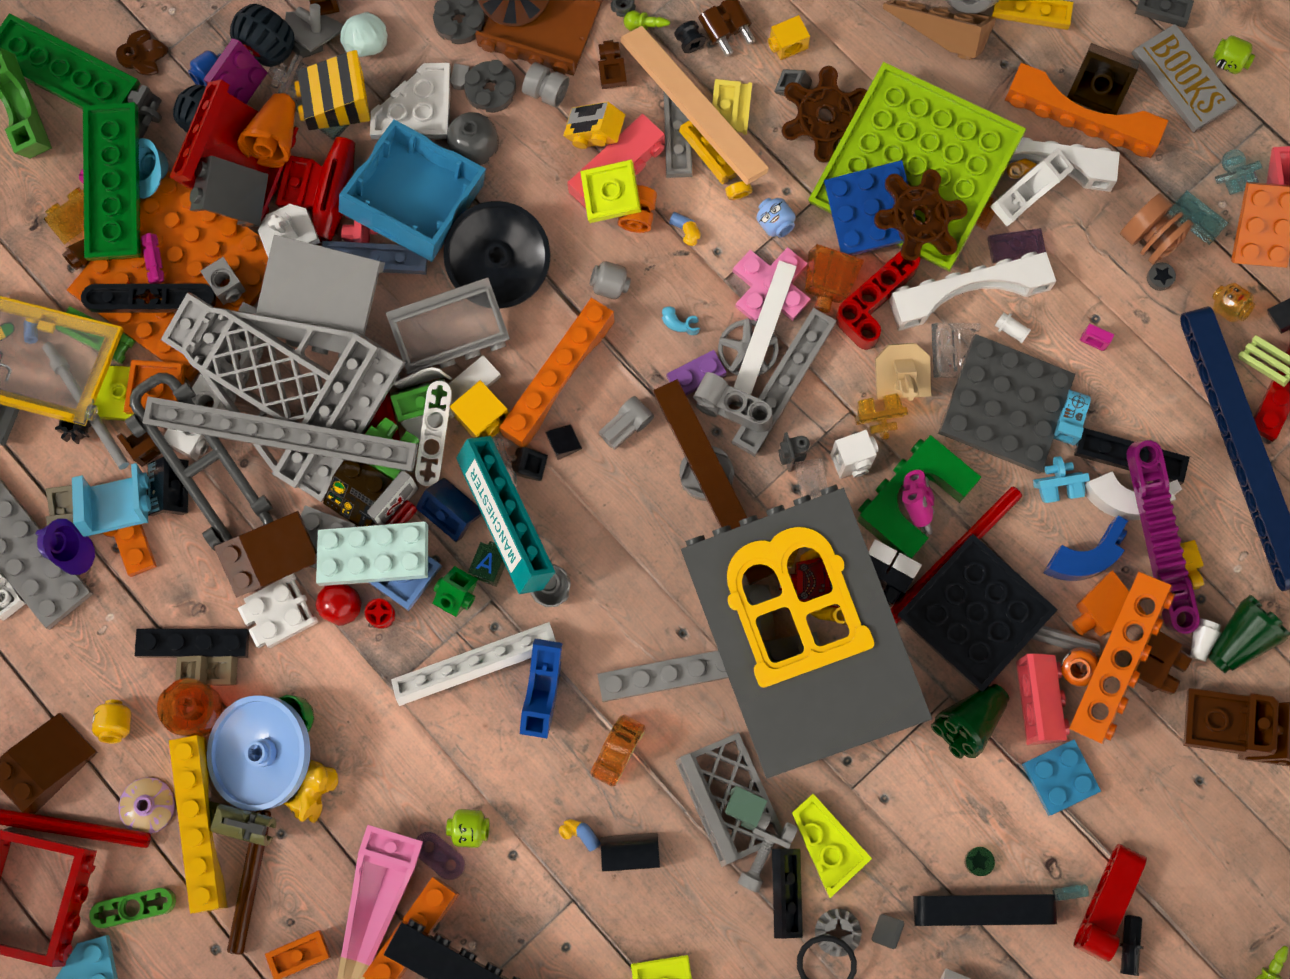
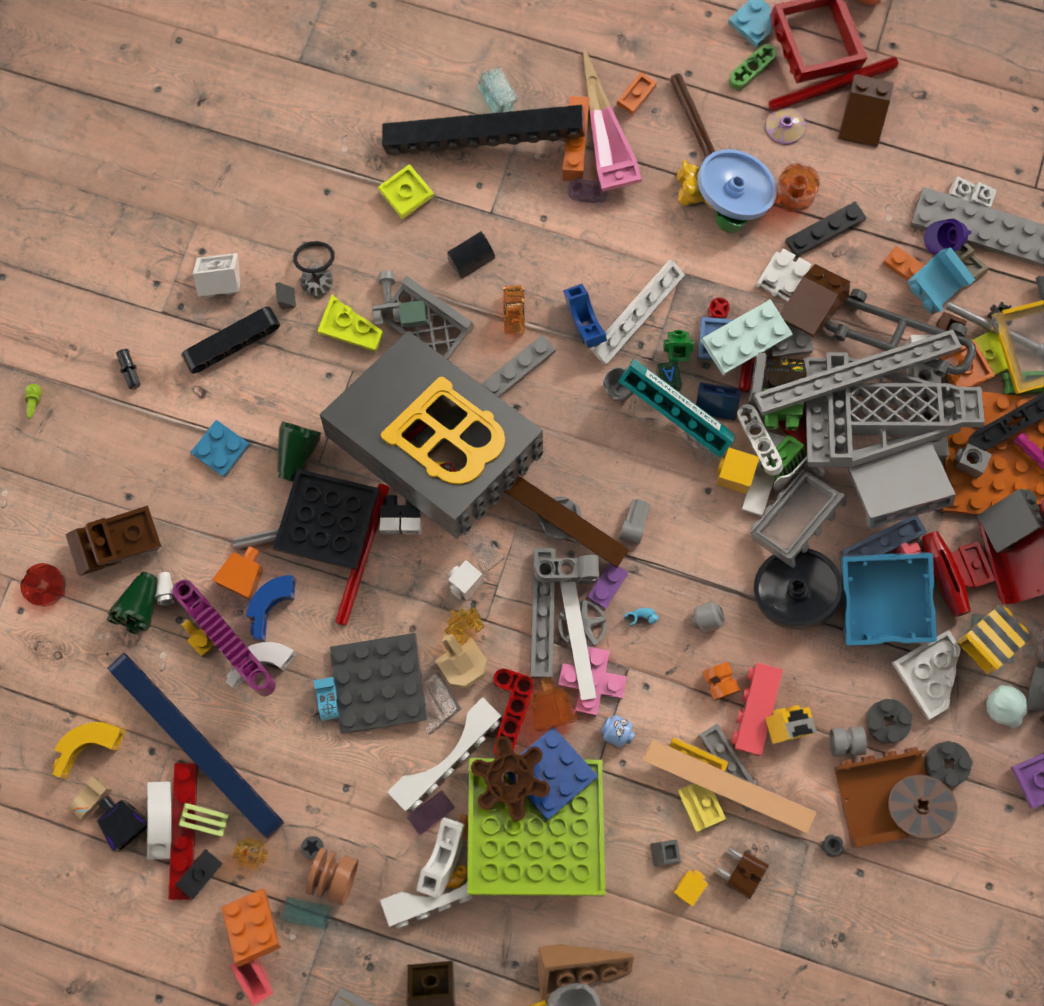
camera: 150 degrees right, 0 degrees up
(111, 721) = (840, 155): yellow head -> none
(166, 490) = (910, 306): black panel -> none
(201, 864) = (723, 103): yellow arch -> none
(209, 670) = (805, 217): dark tan slope -> none
(240, 823) = (724, 138): olive plate -> none
(270, 132) = (1018, 586): orange cone -> none
(288, 222) = (955, 523): white piece -> none
(338, 604) = (748, 299): red hair -> none
(458, 76) = (917, 716): light grey piece -> none
(468, 828) = (579, 214): lime head -> none
(473, 137) = (874, 671): dark grey cylinder -> none
(529, 463) = (684, 460): black slope -> none
(536, 401) = (703, 529): orange arch -> none
(563, 441) = (670, 487): black slope -> none
(581, 830) = (507, 251): arm -> none
(610, 191) = (746, 676): neon yellow plate -> none
(613, 68) = (805, 784): reddish brown plate -> none
(635, 19) = (815, 838): lime bar -> none
(689, 227) = (676, 691): yellow arm -> none
(690, 36) = (765, 845): black wheel -> none
(738, 190) = (659, 736): yellow tile -> none
(787, 893) = (359, 283): black plate -> none
(793, 450) = (508, 560): dark grey hinge -> none
(810, 101) = (643, 836): reddish brown plate -> none
(883, 514) = (410, 609): green arch -> none
(919, 500) = (405, 571): dark pink piece -> none
(979, 861) = (248, 369): clear green tile -> none
(1012, 327) = (402, 744): white pin -> none
(1042, 699) = (254, 487): coral slope -> none
(1049, 486) = (314, 647): medium azure hips -> none
(1071, 892) = (181, 378): clear light blue tile -> none
(1079, 656) = (240, 521): orange head -> none
(1096, 337) = (338, 768): dark pink tile -> none
(1109, 904) = (153, 382): red beam -> none
(1113, 452) = (286, 690): black plate -> none
(1135, 131) = (479, 948): orange arch -> none
(1143, 588) = (216, 588): orange brick -> none
(1163, 655) = (192, 554): reddish brown hips -> none
(1237, 171) = (291, 961): clear light blue hips -> none

